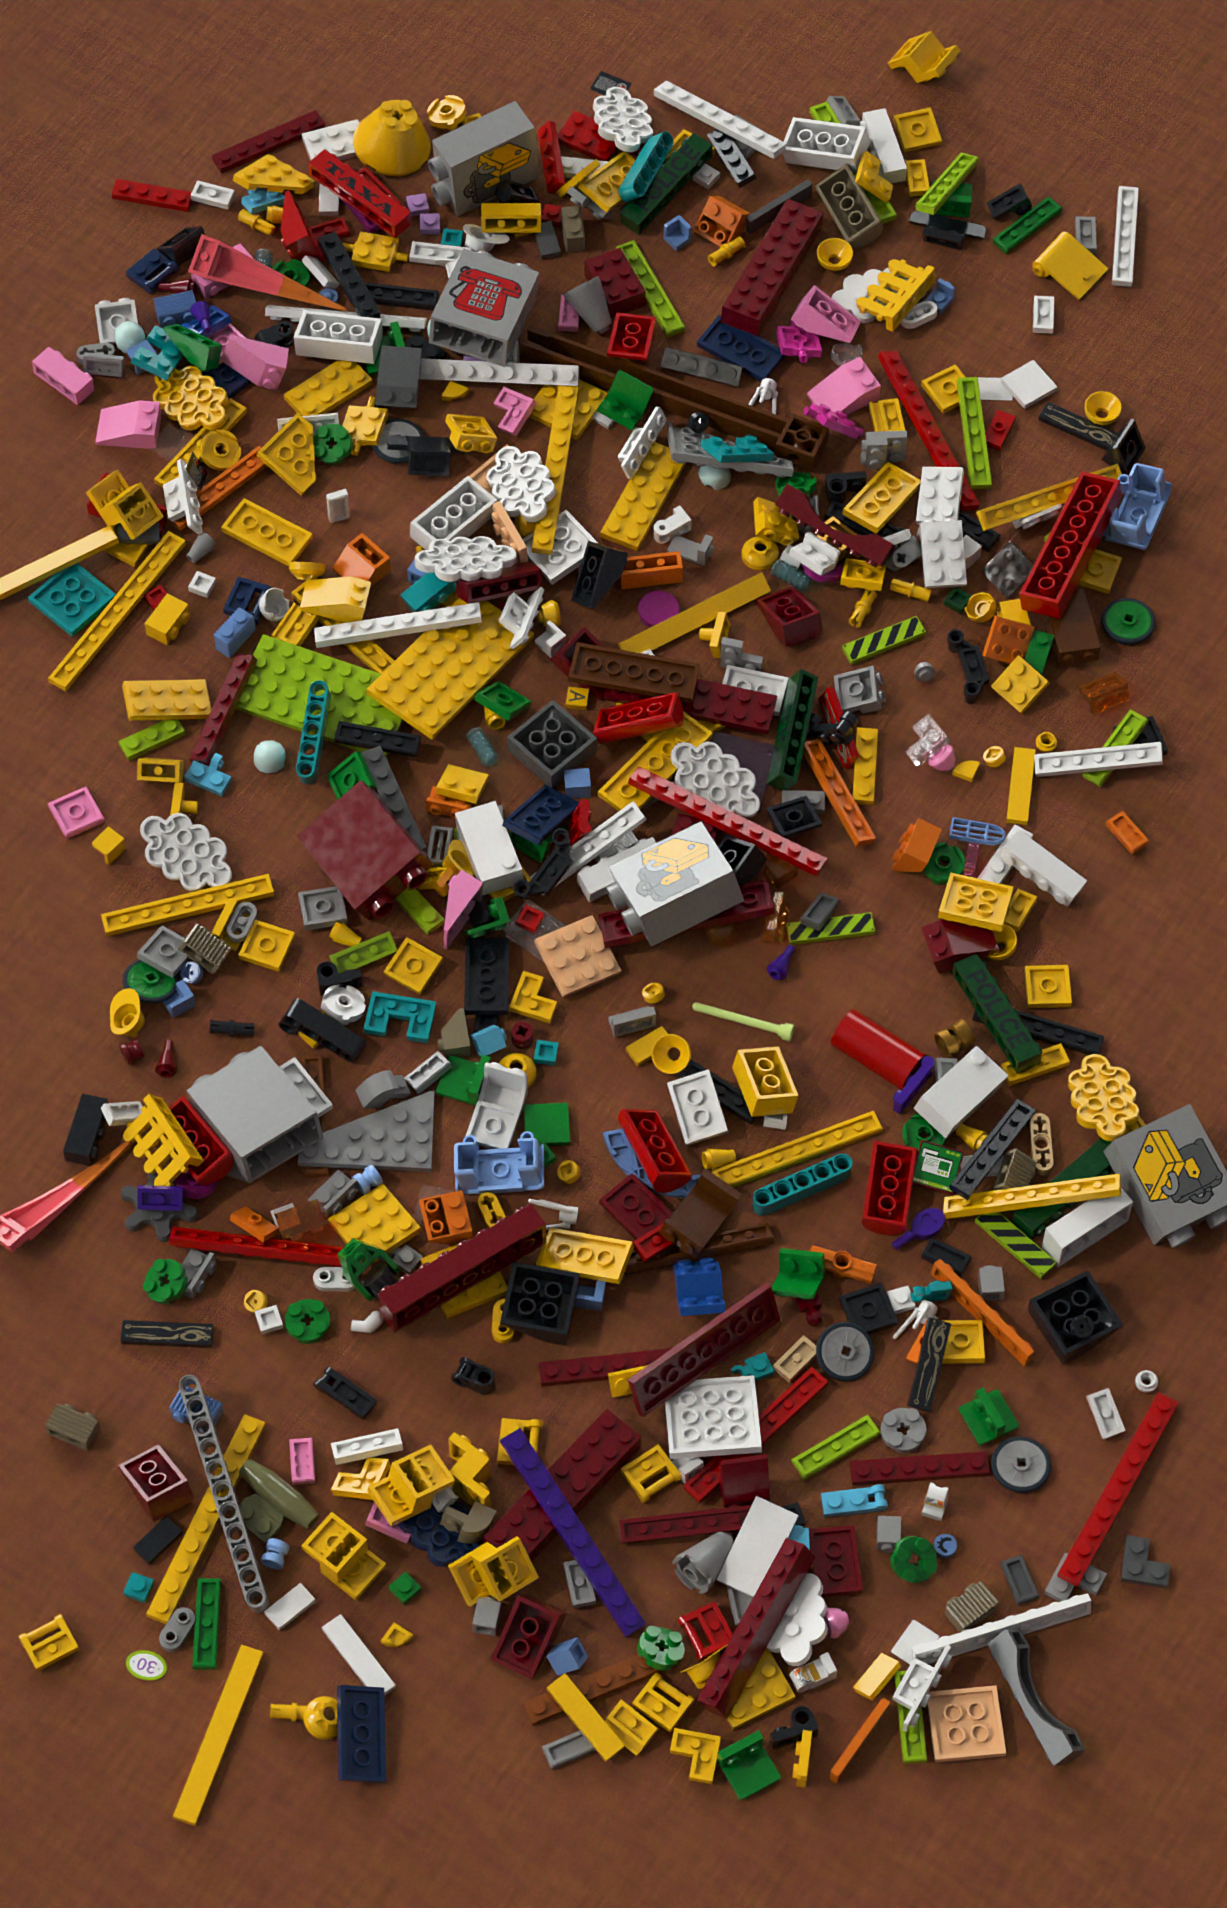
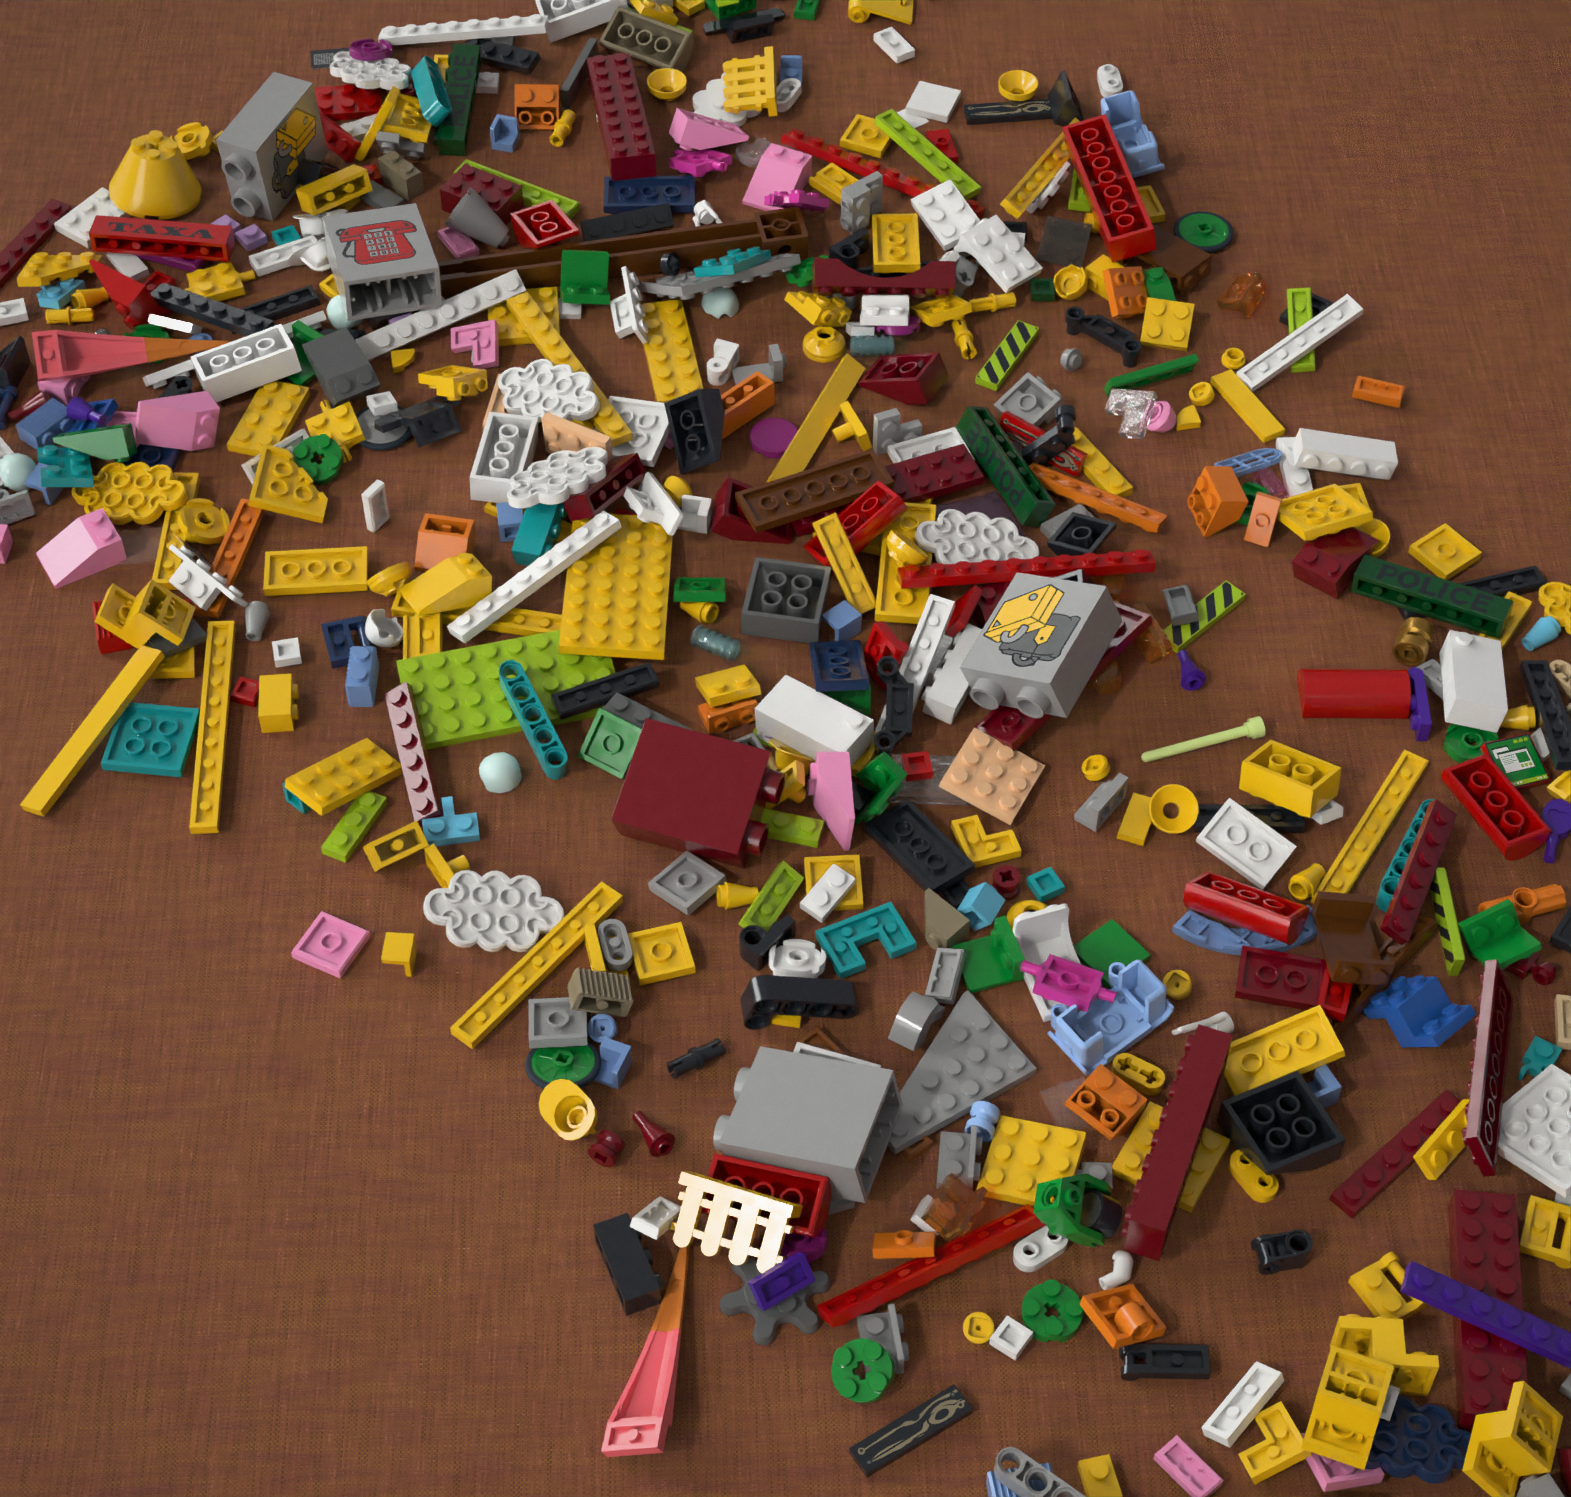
camera: 35 degrees left, 10 degrees down
(341, 1349) = (1122, 1316): none -> orange plate
(400, 970) = (827, 893): none -> white plate
(406, 423) = (382, 403): none -> white plate
(471, 1526) = (1435, 1408): dark tan brick -> none
(490, 1125) = (1068, 982): none -> dark pink plate
(577, 698) = (768, 549): yellow tile -> none
(606, 740) = (844, 563): none -> yellow tile
(639, 98) = (369, 50): none -> magenta tile
(654, 755) = (905, 550): none -> yellow piece
(656, 825) = (963, 610): none -> red tile
(781, 1242) = (1447, 922): none -> lime tile
(788, 1197) = (1418, 872): none -> dark red plate
(934, 882) = (1263, 519): none -> orange plate
(970, 719) = (1152, 374): none -> green tile
(1053, 1088) = (1542, 632): none -> medium azure cone
(1184, 442) = (1109, 80): none -> white plate

